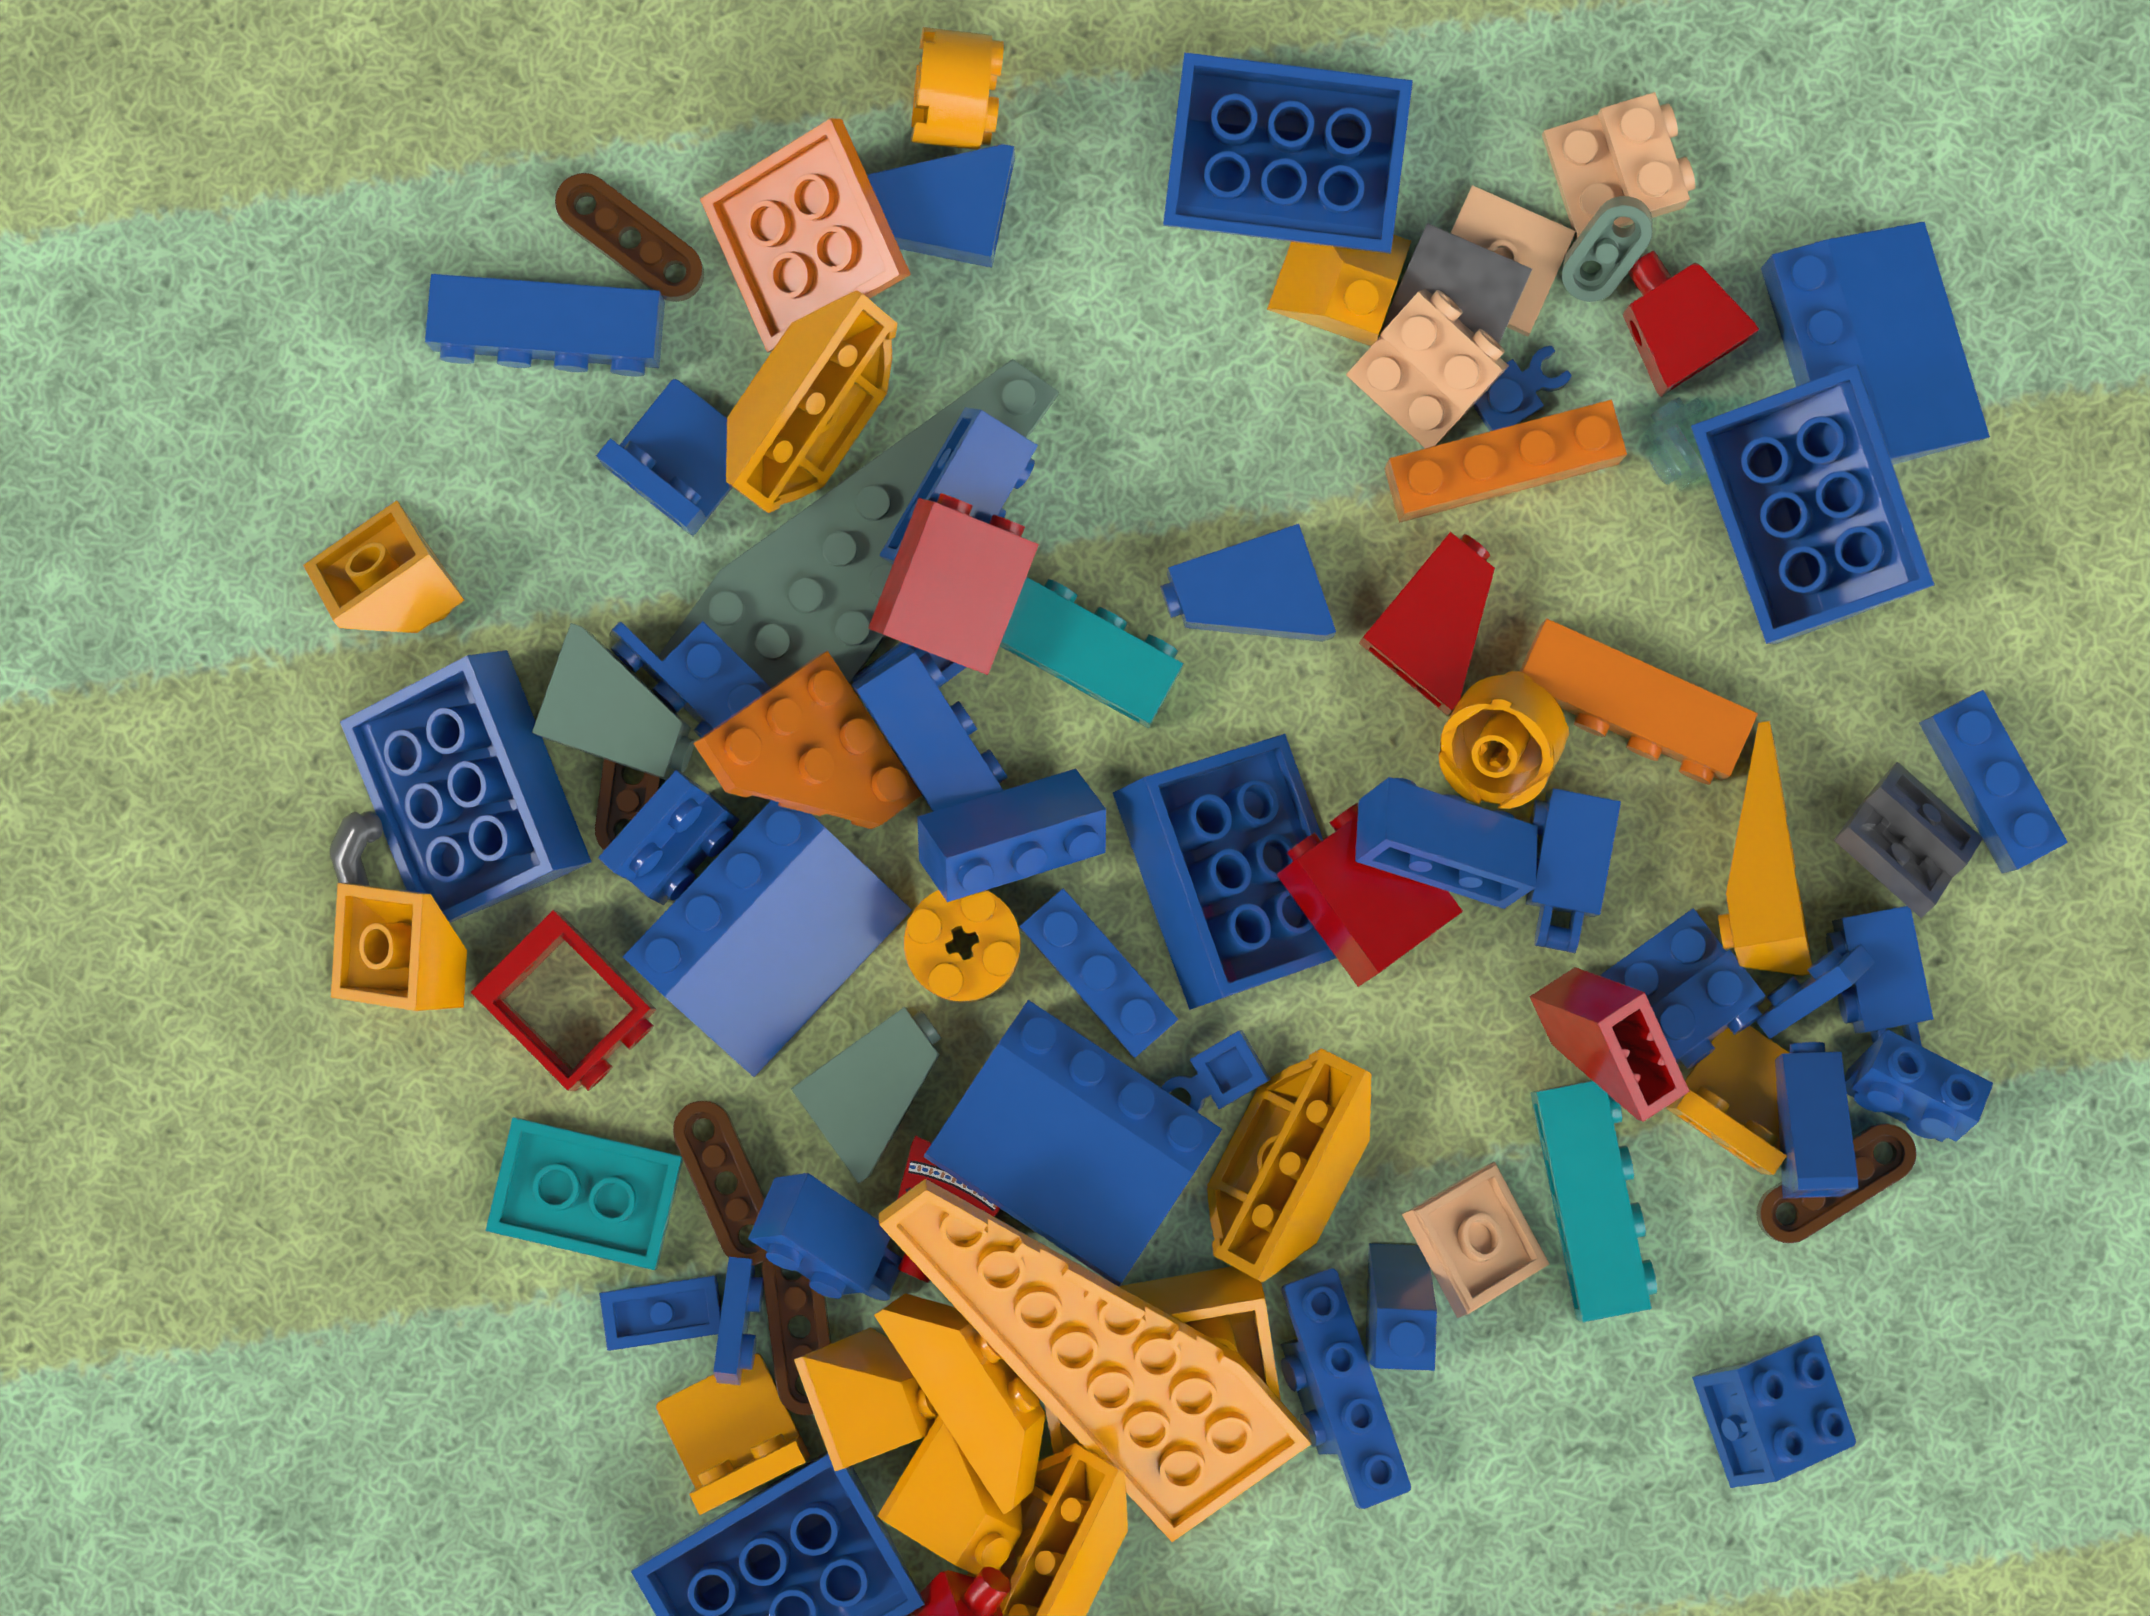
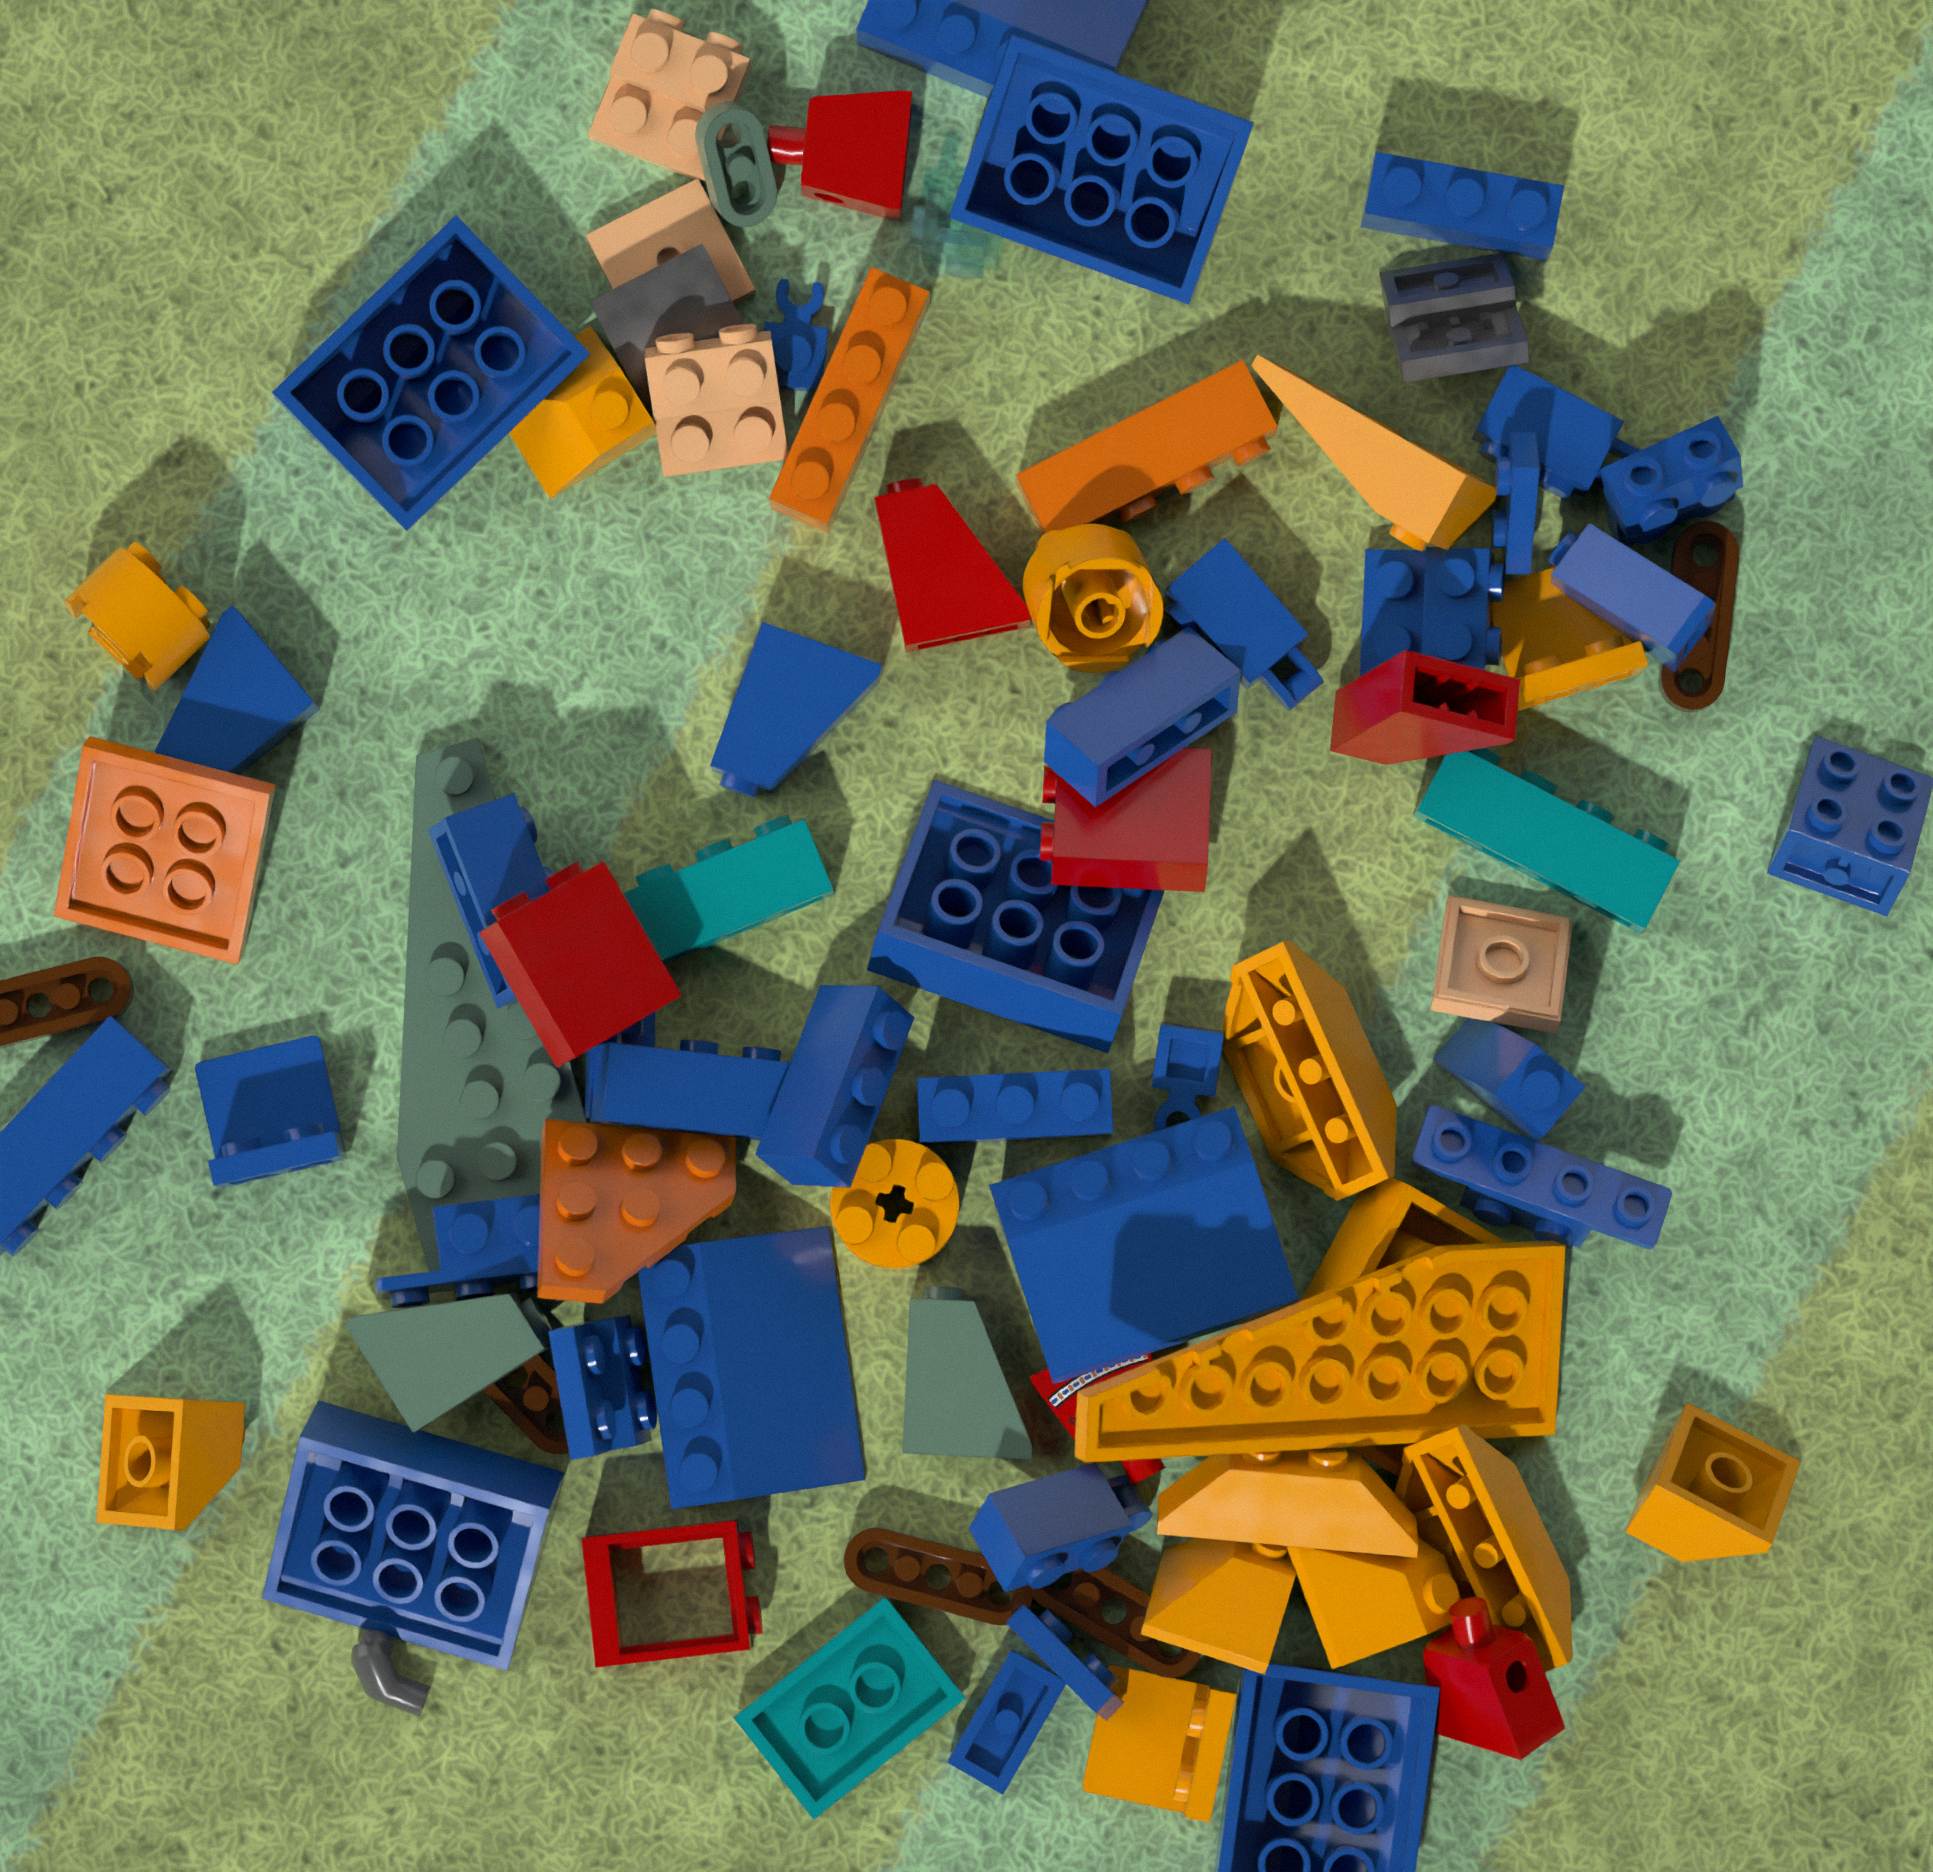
camera: 50 degrees left, 0 degrees up
(396, 950) = (505, 1705): light orange slope -> none
(809, 401) = (313, 962): light orange wedge -> none

